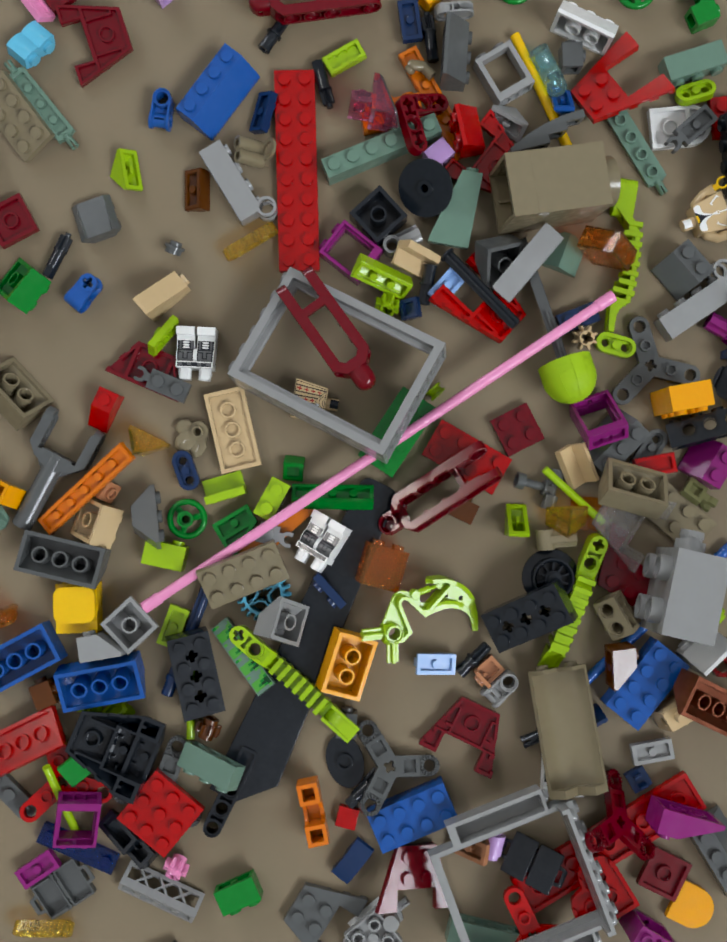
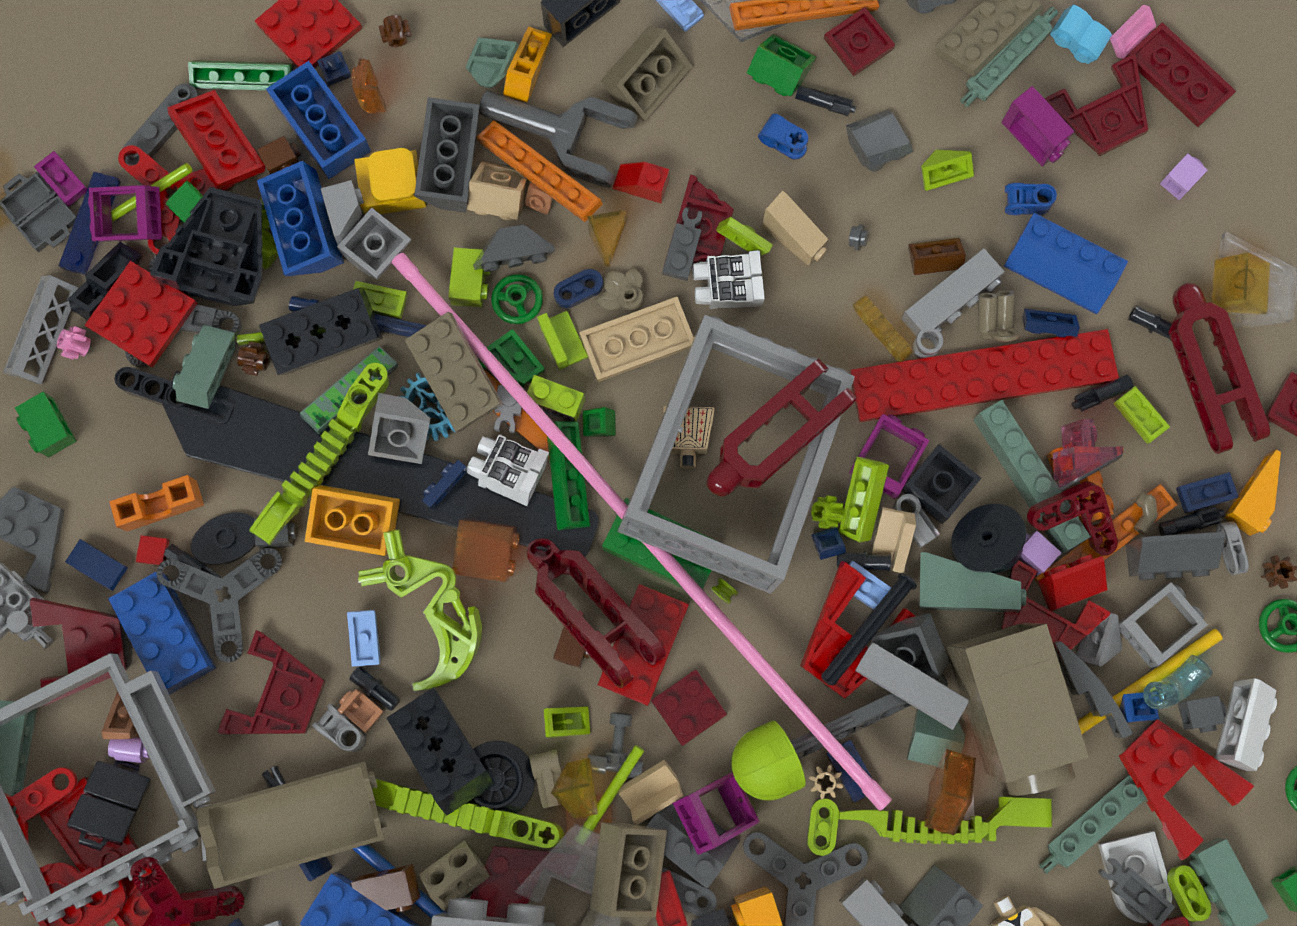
camera: 90 degrees right, 10 degrees down
(105, 91) = (1038, 127): none -> magenta window

